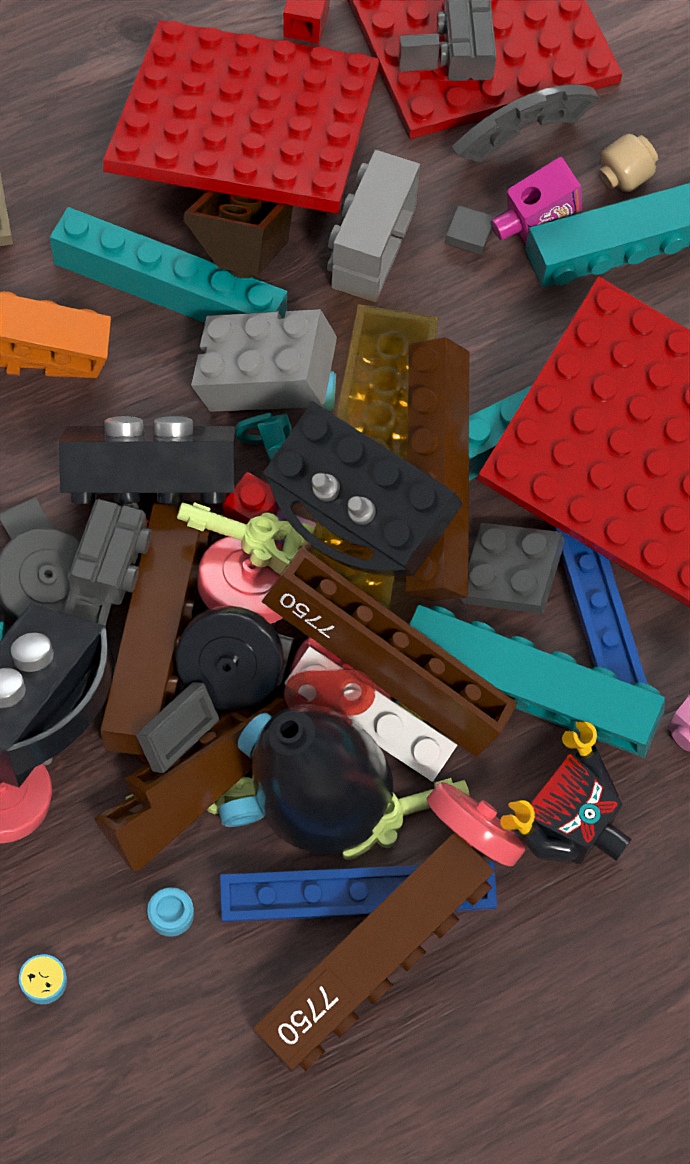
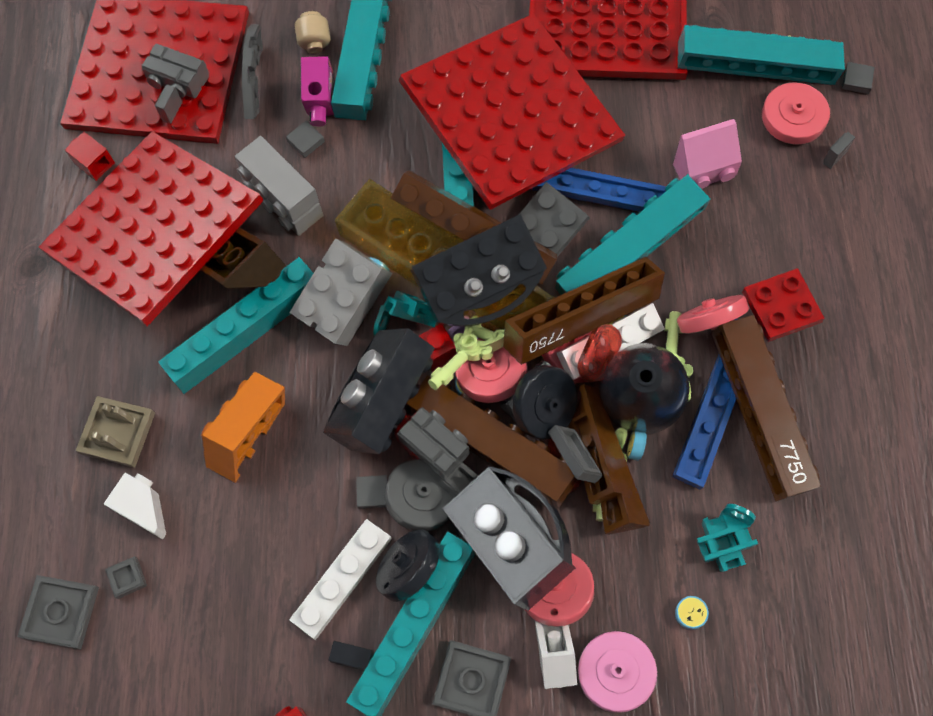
camera: 55 degrees left, 5 degrees up
(154, 989) = (725, 548): none -> teal piece
(170, 911) = (679, 516): medium azure tile -> none
(250, 734) = (604, 408): medium azure tile -> none
(541, 914) = (783, 305): none -> red plate
(572, 808) = (719, 259): torso -> none

